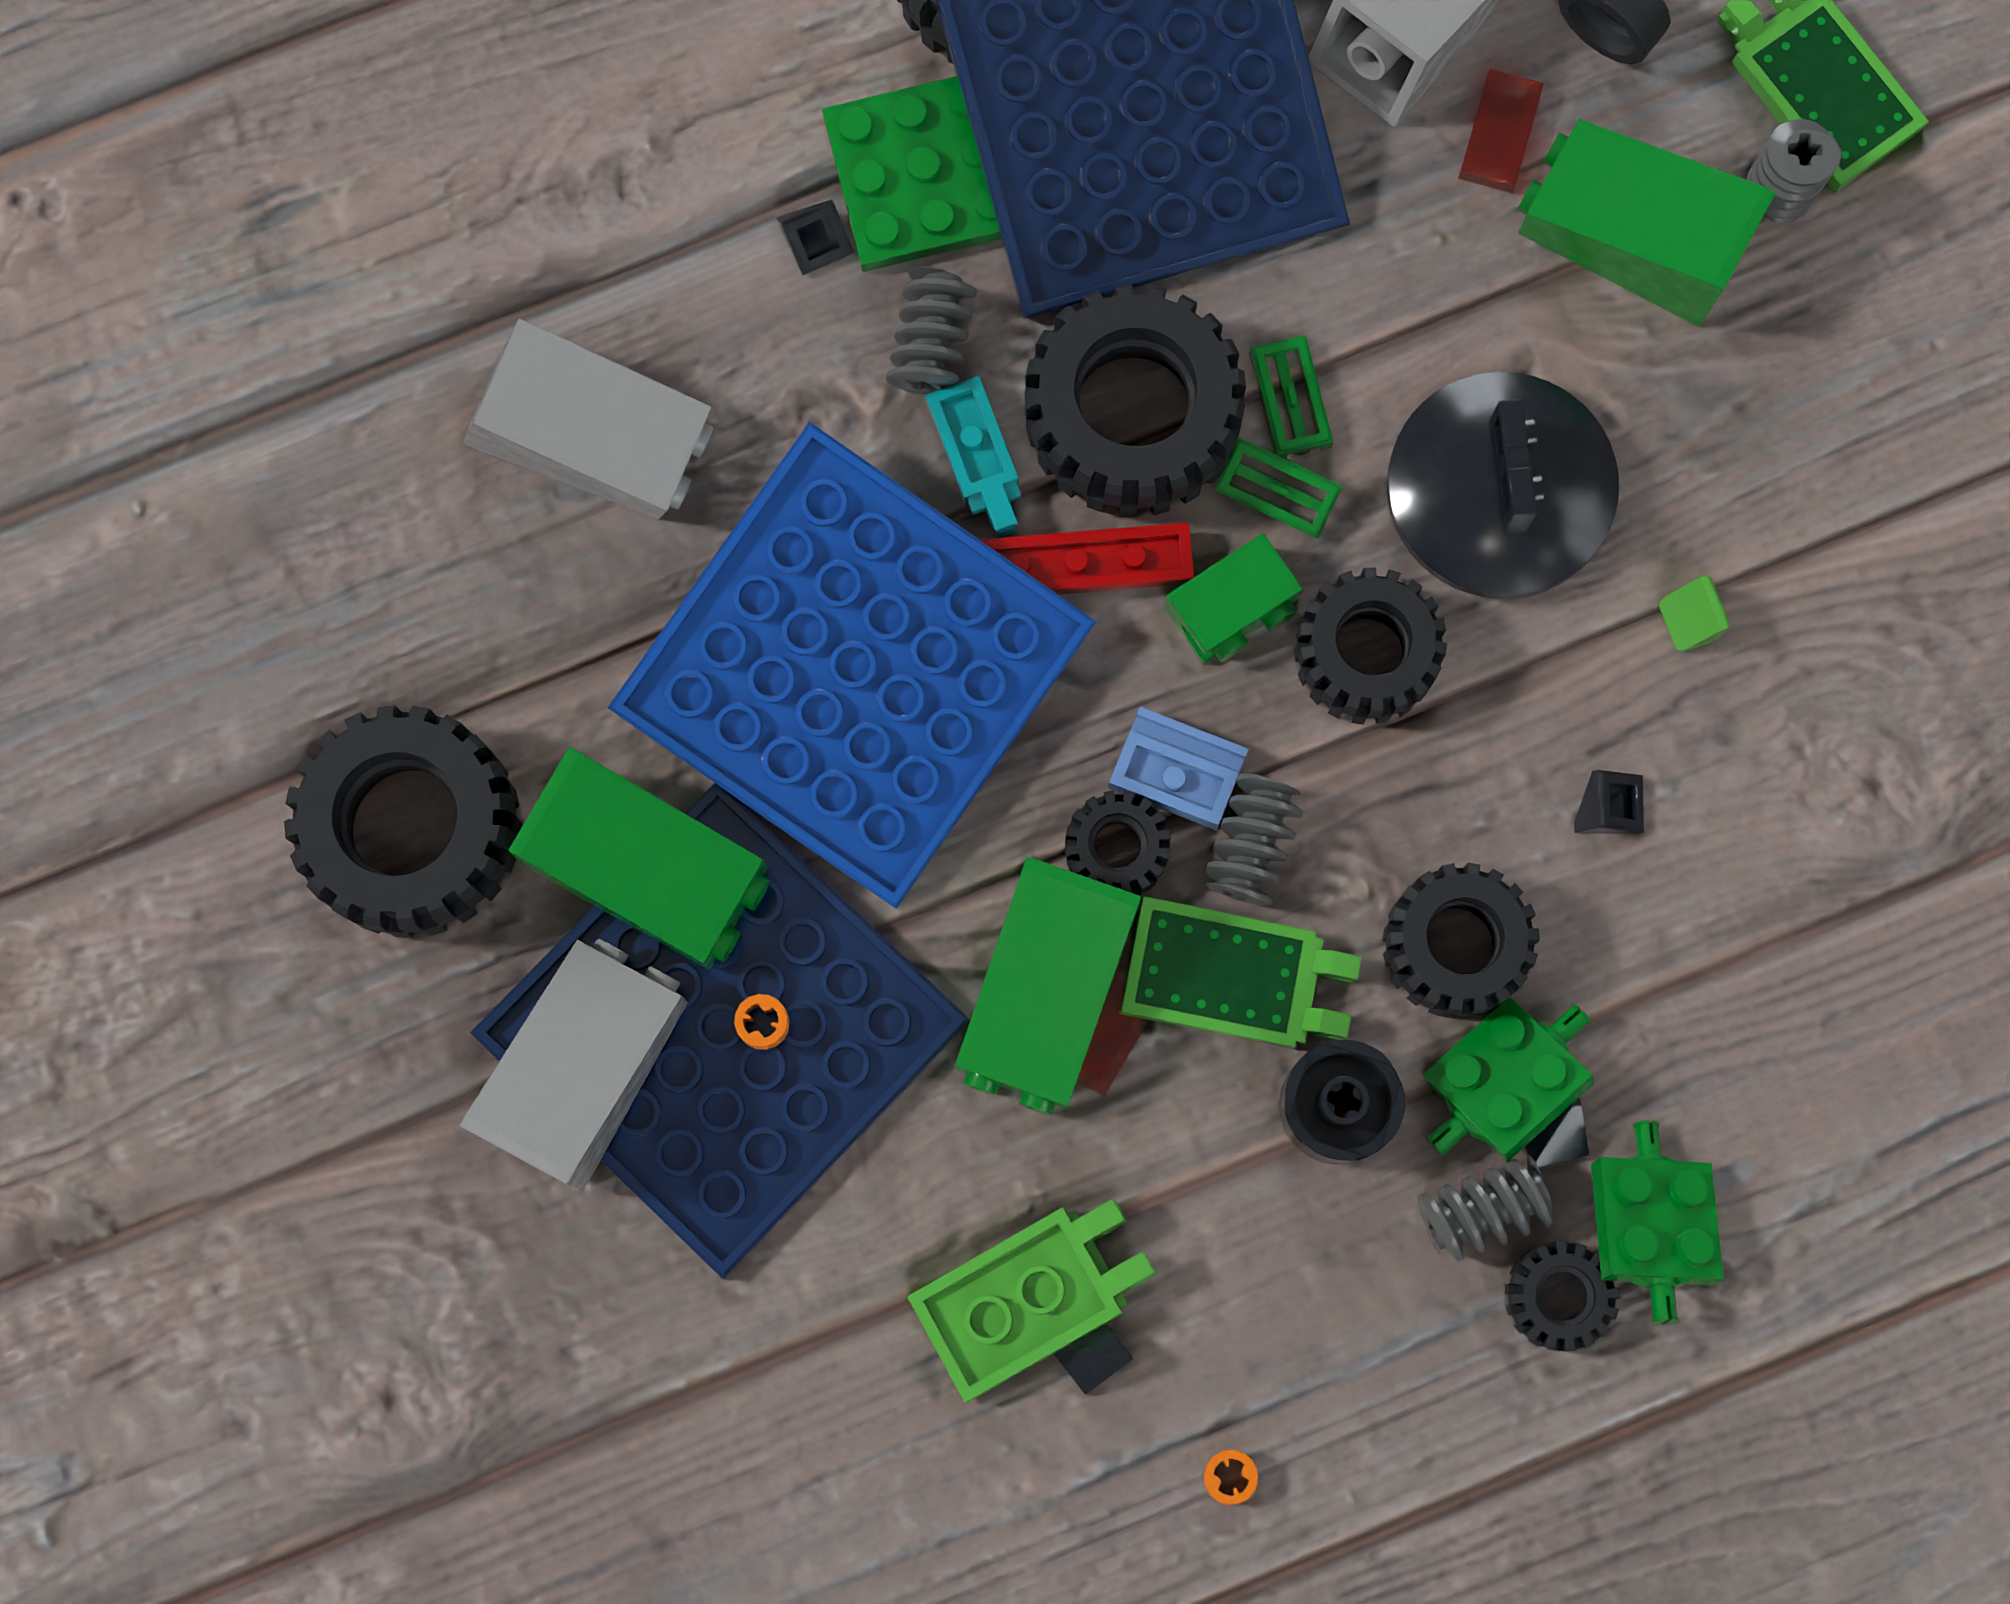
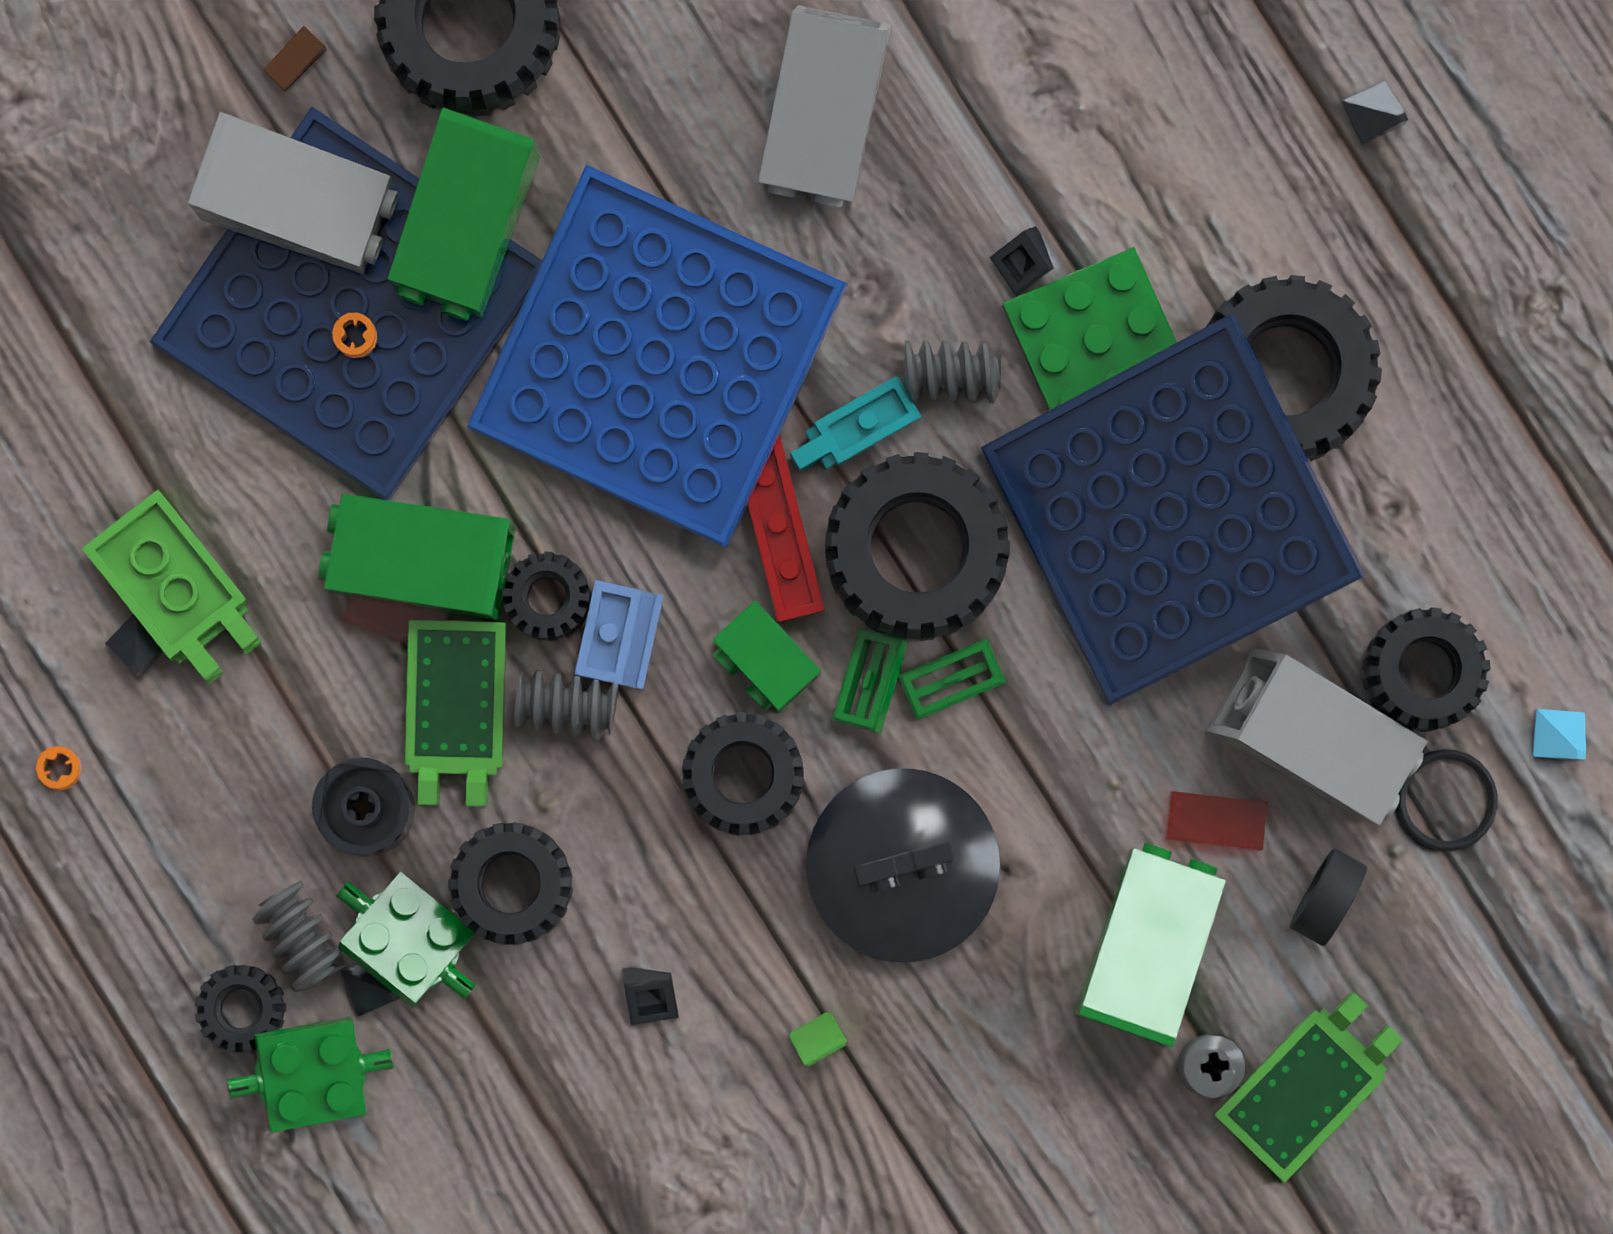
camera: 80 degrees right, 5 degrees up
(406, 1045) = (295, 58): none -> reddish brown piece

